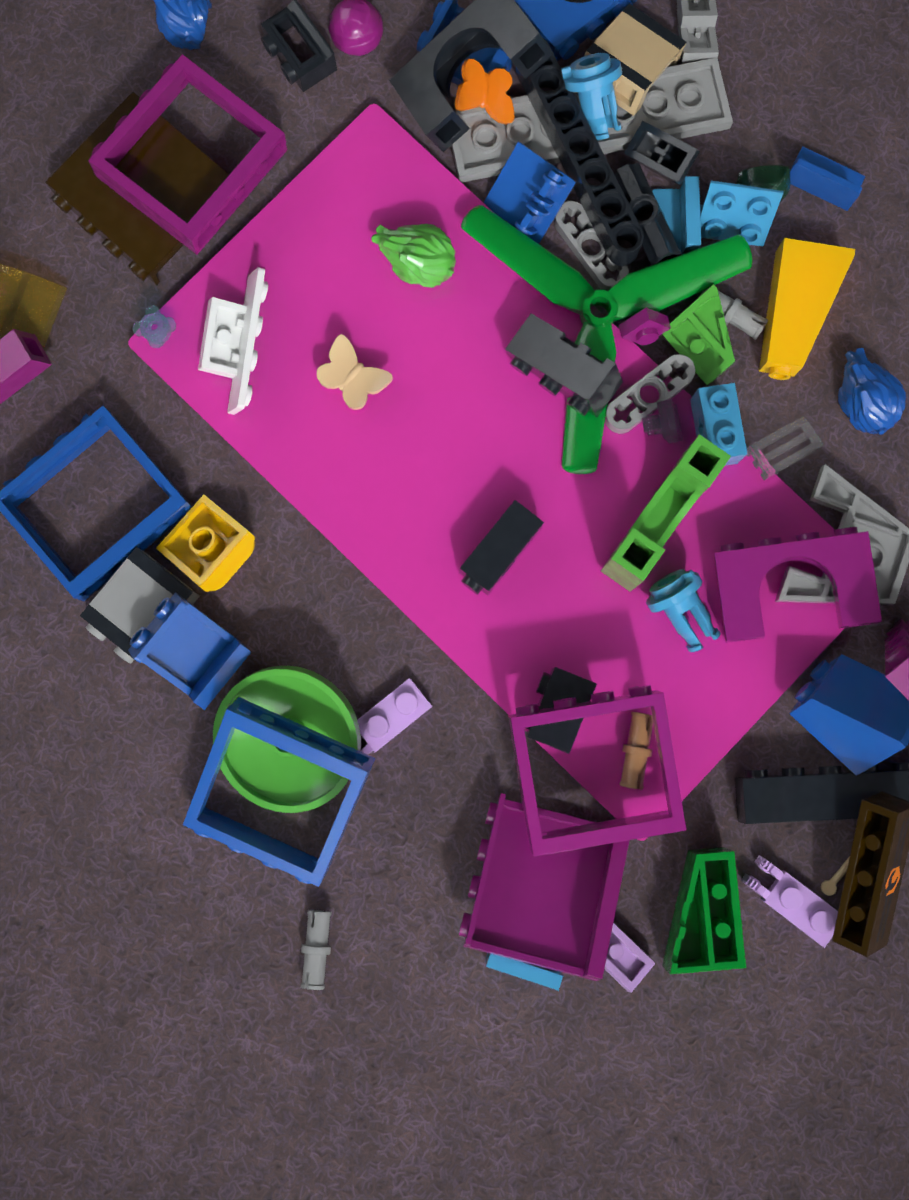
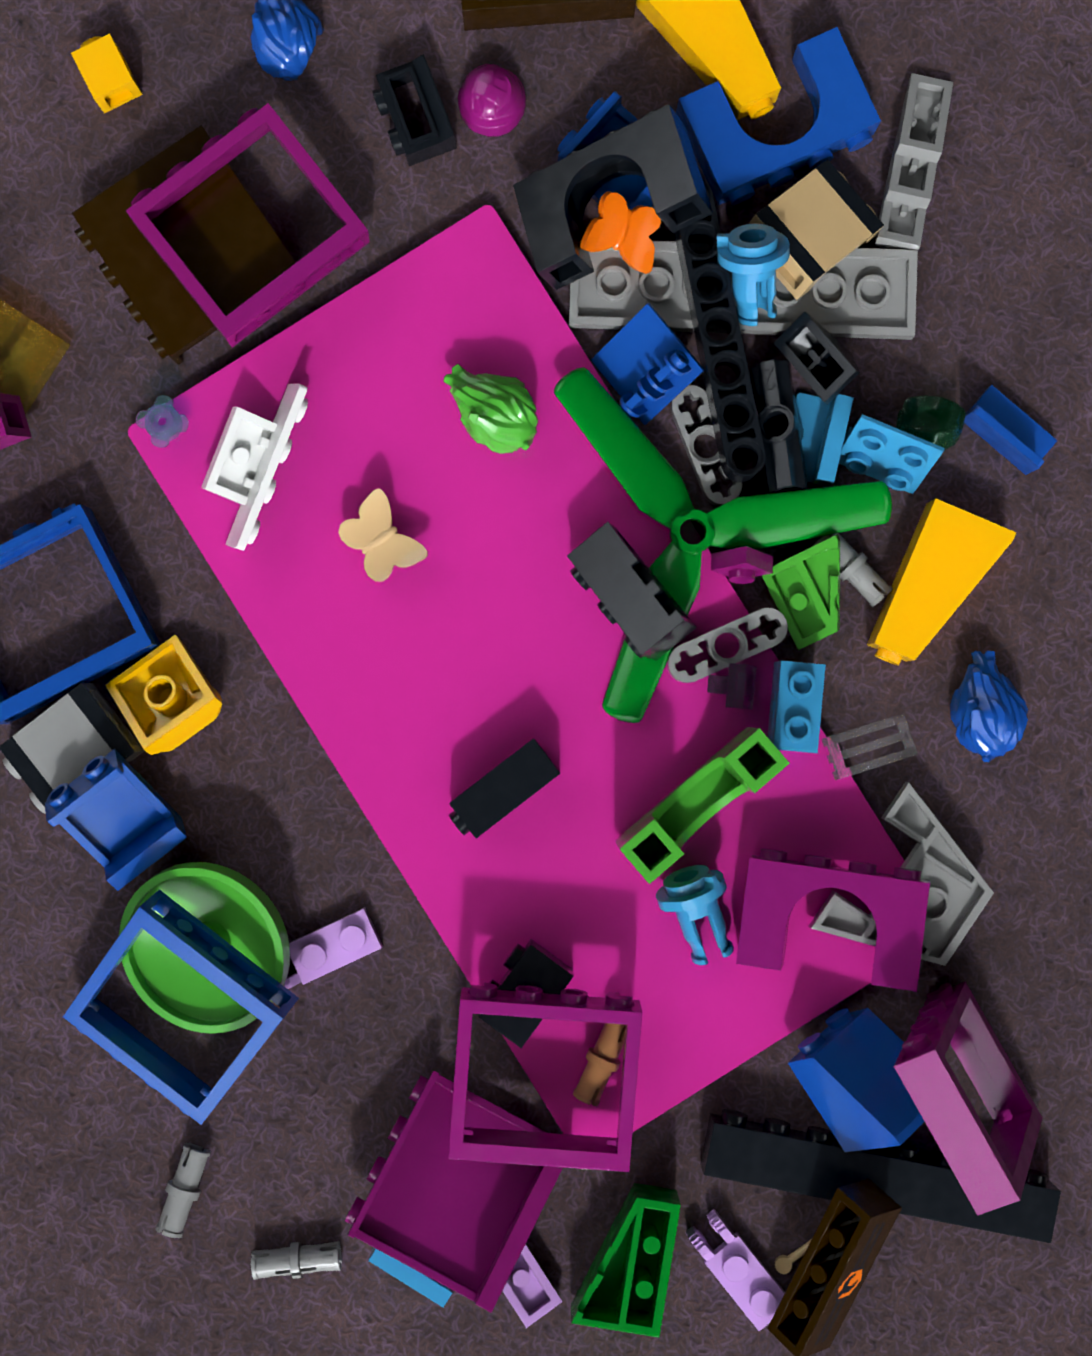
camera: 15 degrees right, 5 degrees up
(49, 73) = (106, 72): none -> yellow brick
(424, 985) = (296, 1260): none -> light grey pin

